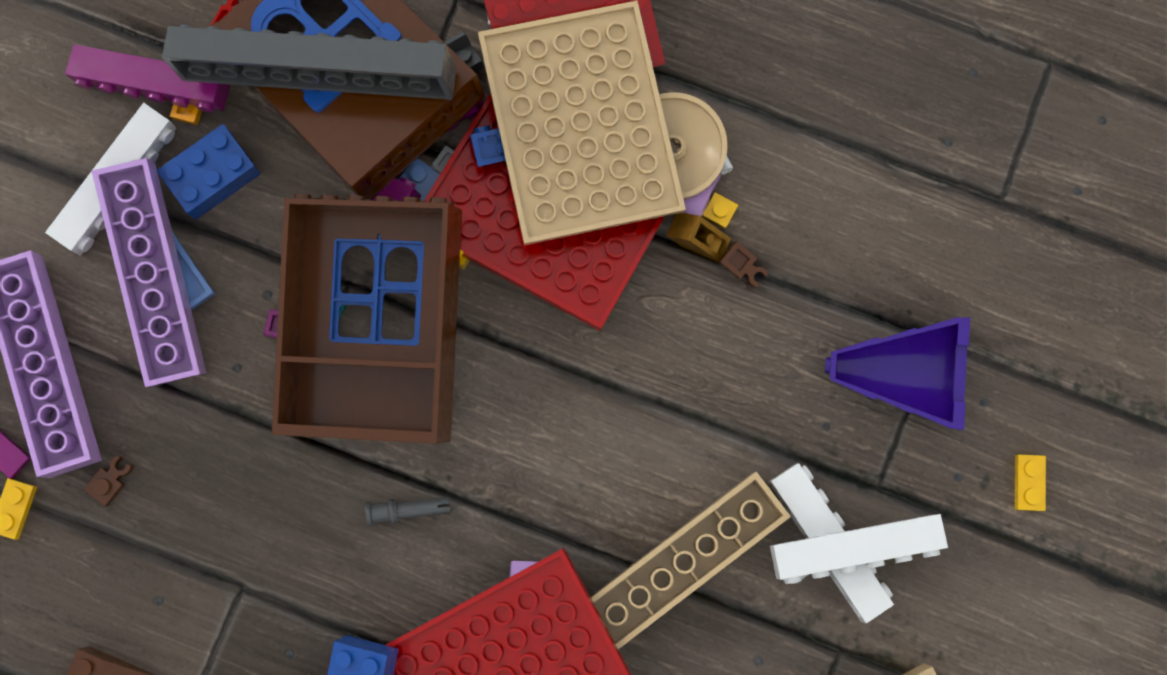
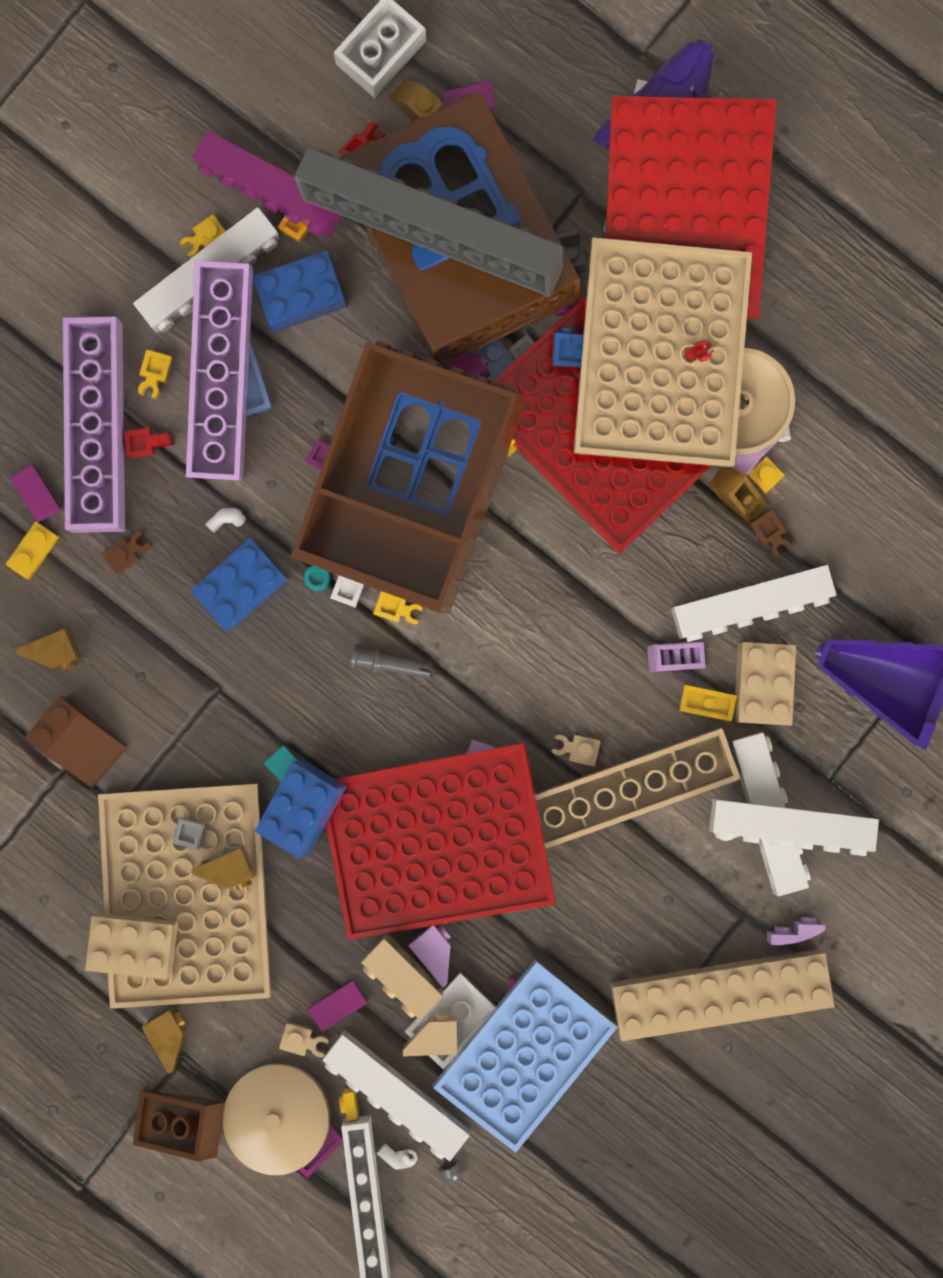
camera: 20 degrees right, 5 degrees up
(61, 604) = (54, 651): none -> pearl gold slope
(87, 290) = (155, 370): none -> yellow plate
(95, 366) = (142, 442): none -> red plate
(99, 144) = (205, 232): none -> yellow plate
(199, 413) = (226, 515): none -> white arm
(231, 479) = (239, 585): none -> blue brick
(308, 448) = (317, 578): none -> teal tile
(323, 644) = (280, 762): none -> teal tile
(342, 451) = (347, 591): none -> white plate
(392, 453) = (394, 607): none -> yellow plate
(616, 109) = (699, 351): none -> red plate
(624, 537) = (581, 750): none -> tan plate
(668, 421) = (654, 656): none -> lavender slope
(734, 451) = (707, 703): none -> yellow plate
(748, 337) = (753, 602): none -> white brick
(784, 414) = (765, 683): none -> tan brick
(902, 650) = (802, 930): none -> lavender slope

